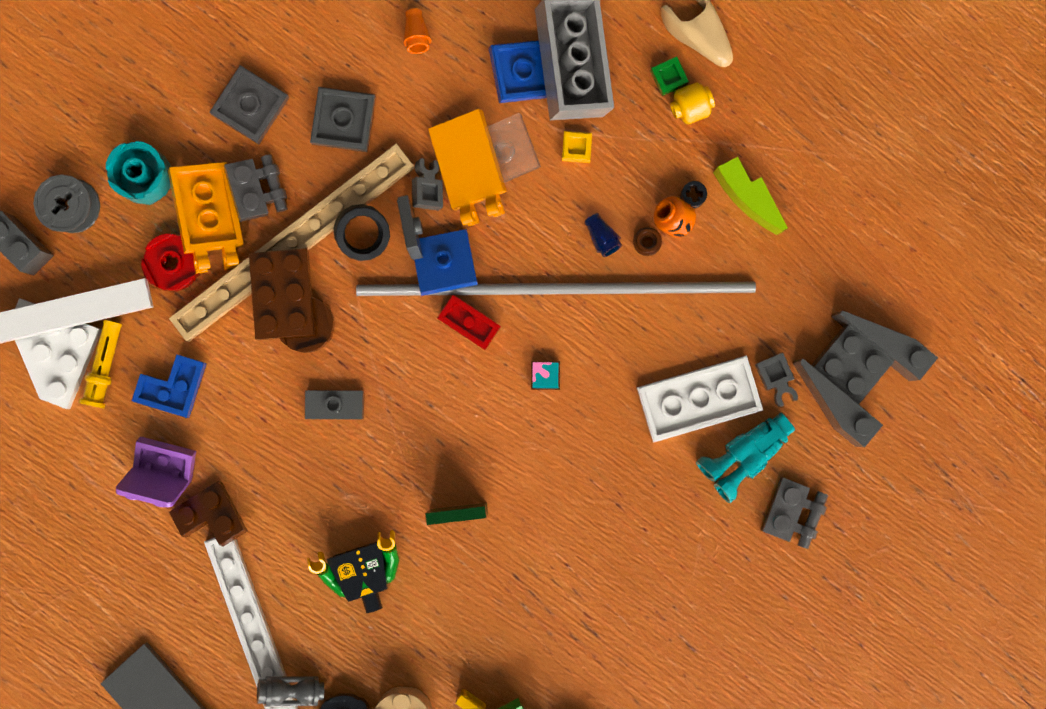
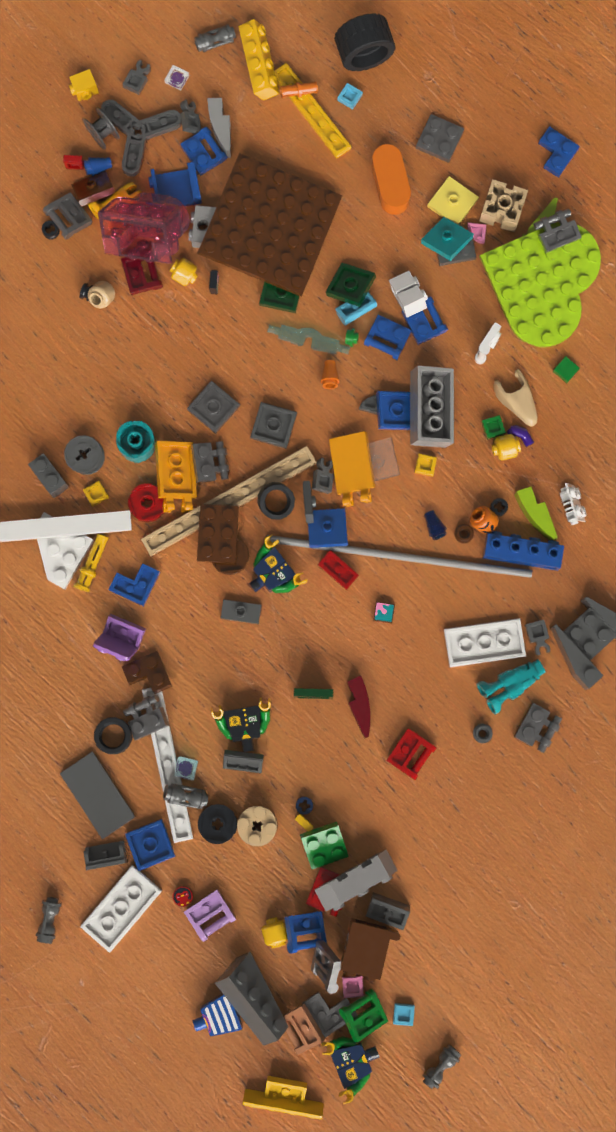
camera: 10 degrees right, 5 degrees down
(93, 259) = (95, 493): none -> yellow tile
(148, 616) = (98, 735): none -> black tyre
(219, 591) = (148, 723): none -> flat silver plate
(285, 648) = (185, 768): none -> clear light blue tile
(368, 626) = (243, 761): none -> dark grey plate
(373, 337) = (273, 570): none -> torso
(474, 672) = (308, 810): none -> dark blue bush
(481, 69) = (369, 405): none -> dark grey tile
(529, 519) = (360, 705): none -> dark red slope
(605, 575) = (406, 749): none -> red plate
(713, 79) = (522, 433): none -> dark purple arm
(723, 533) = (487, 729): none -> dark grey plate
(738, 255) = (523, 551): none -> blue brick
(801, 158) = (573, 494): none -> white hinge

